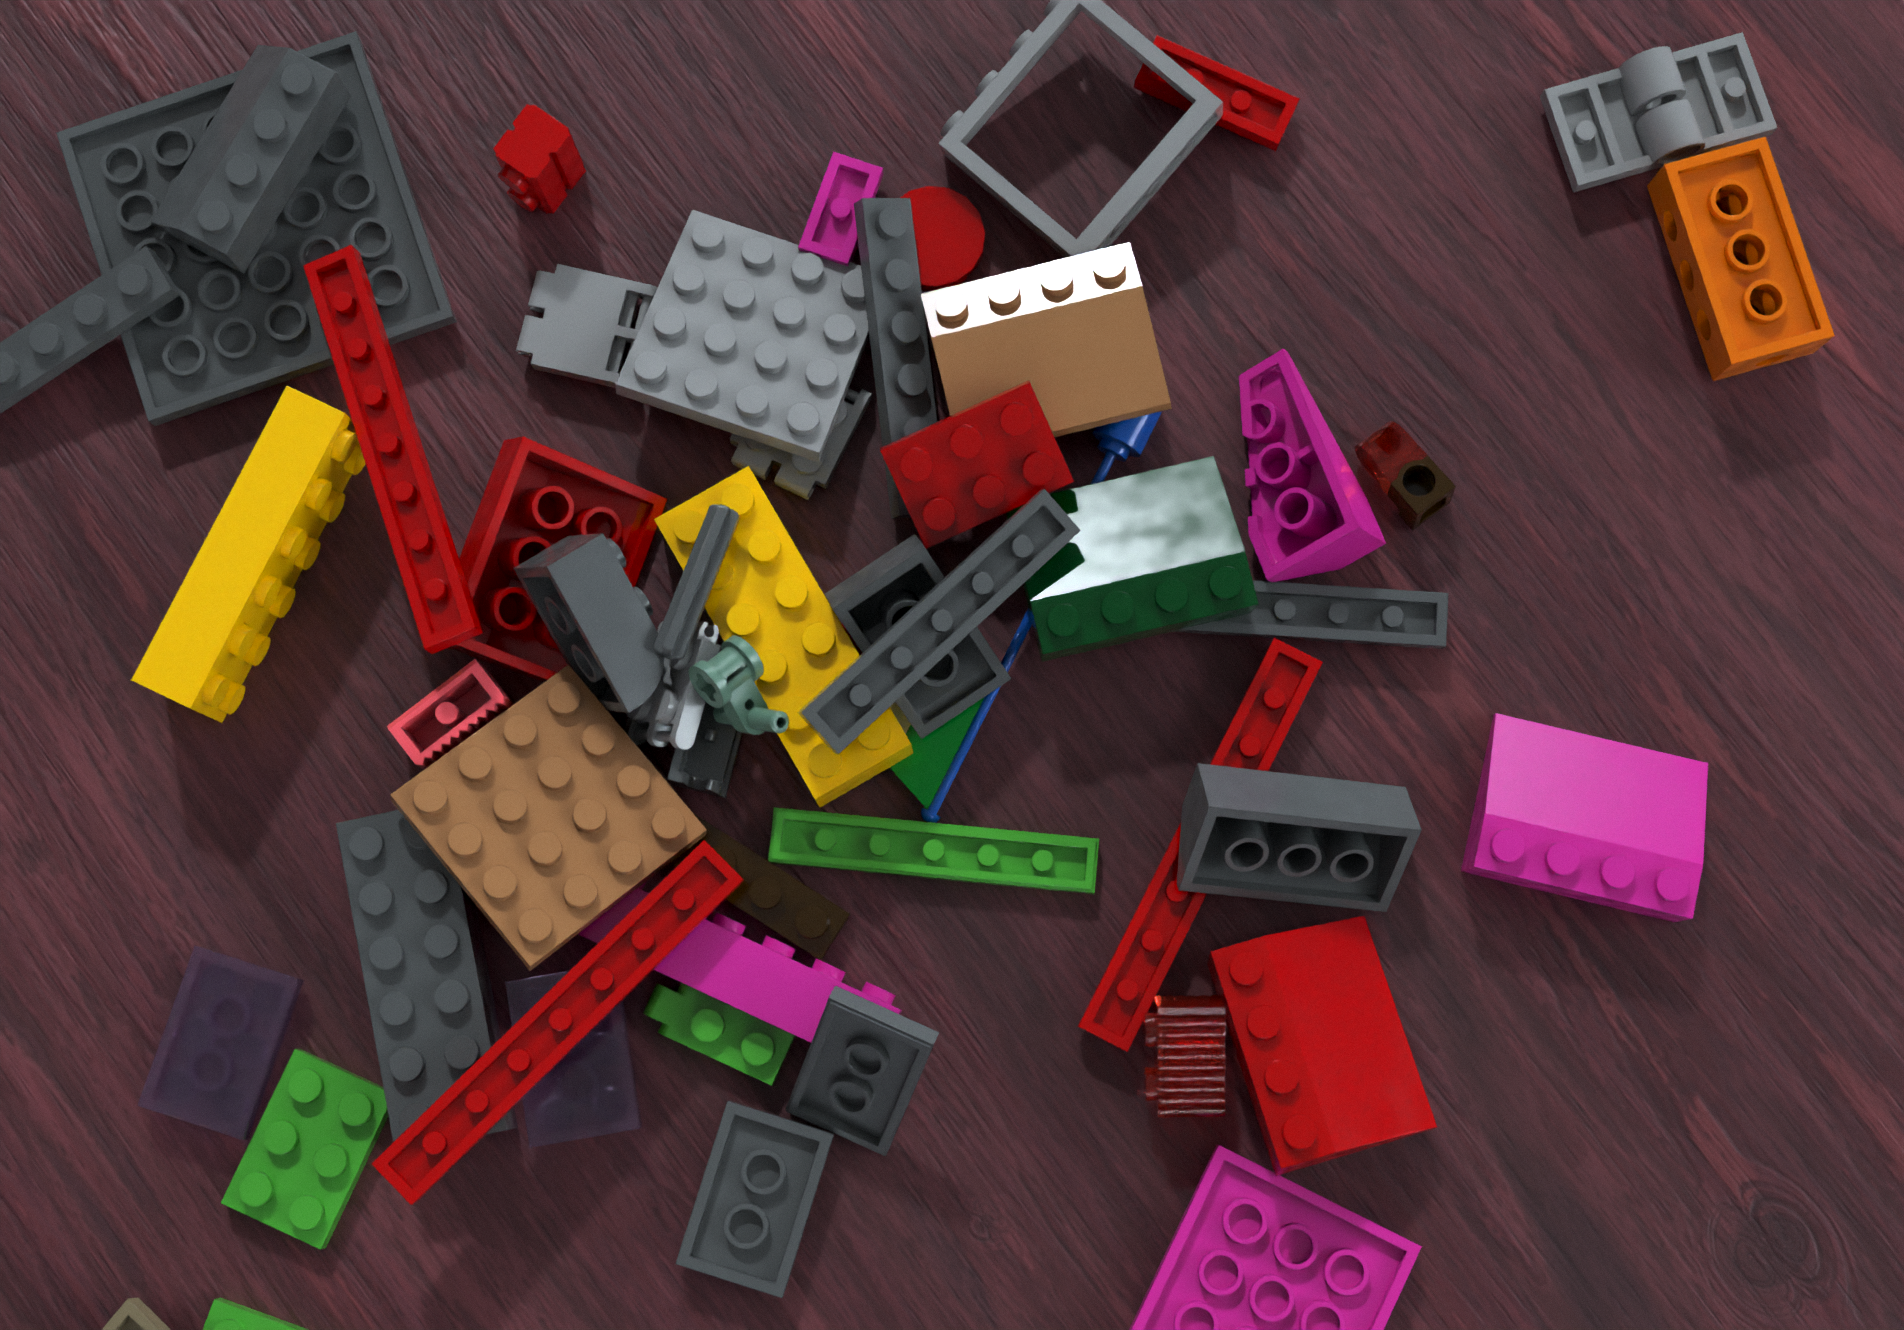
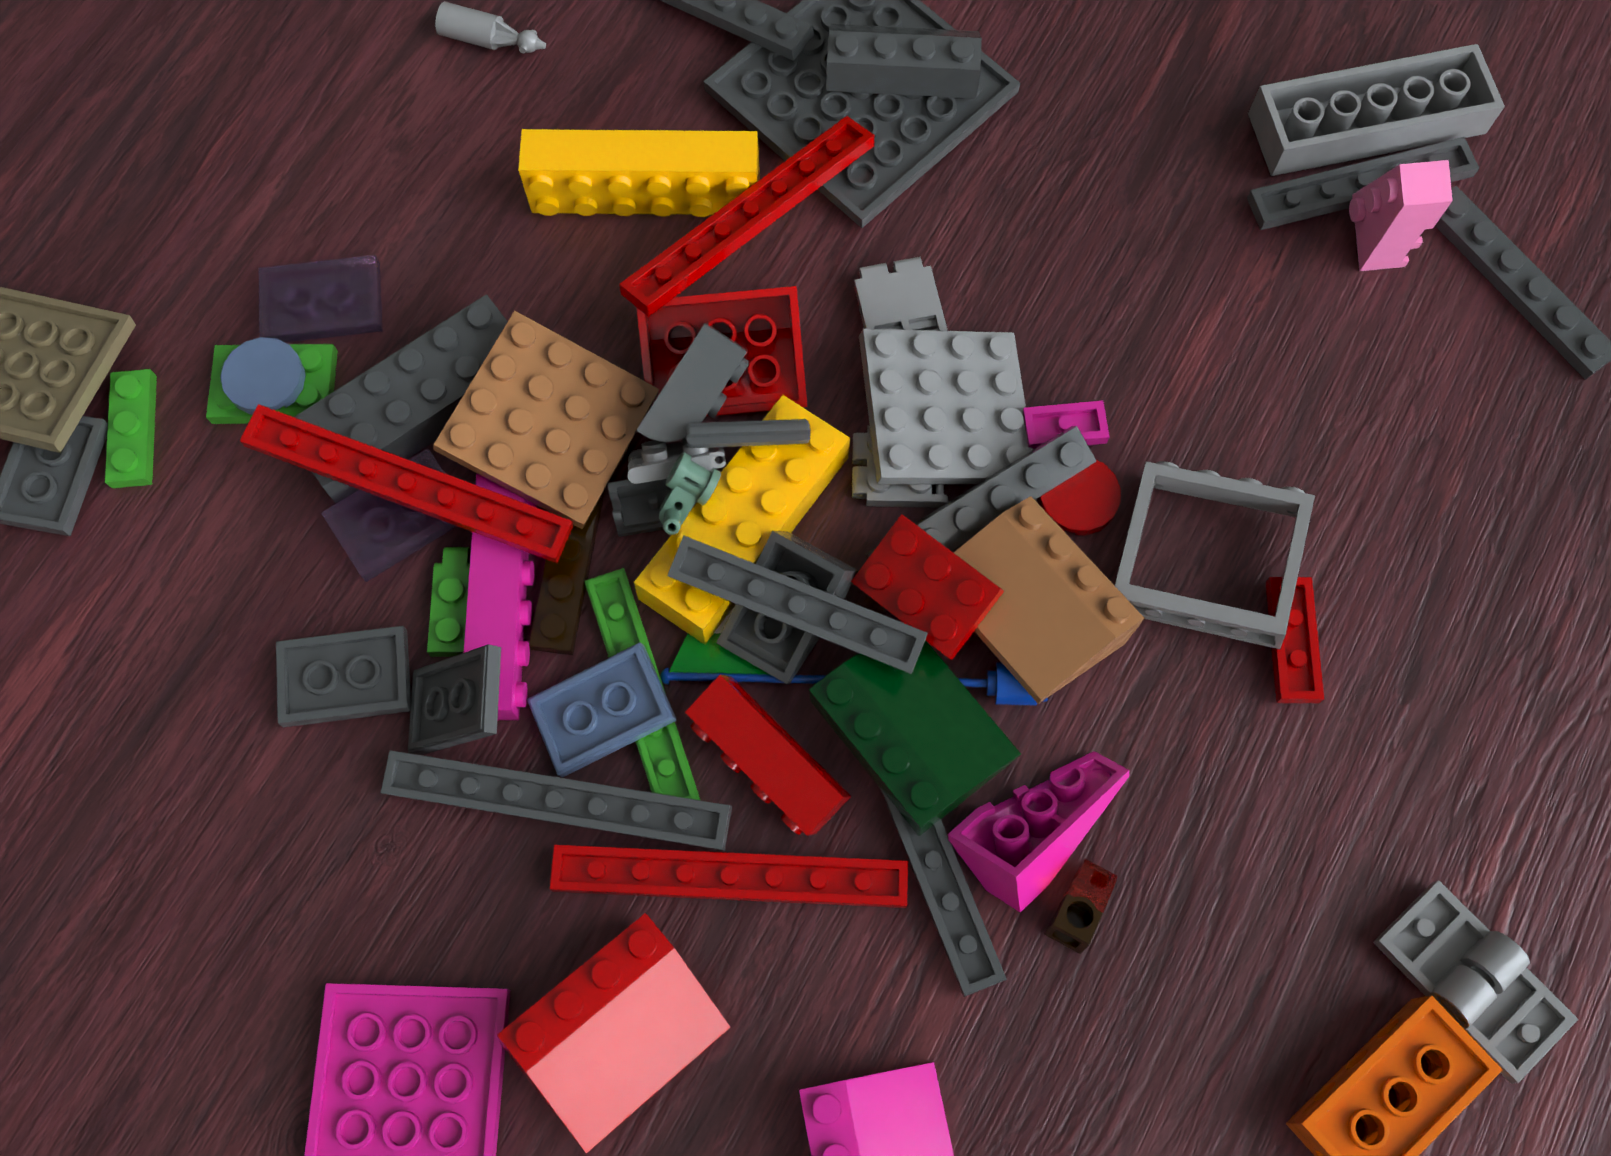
camera: 65 degrees right, 10 degrees down
(305, 1153) = (263, 374): none -> sand blue tile
(450, 714) = (593, 331): coral brick -> none
(538, 160) = (991, 219): red brick -> none
(940, 906) = (601, 710): none -> sand blue tile
(1025, 1004) = (557, 800): none -> dark grey plate
(1084, 739) = (767, 755): none -> red brick
(1187, 1056) = (562, 933): clear red brick -> none
(1294, 837) = (761, 942): dark grey slope -> none

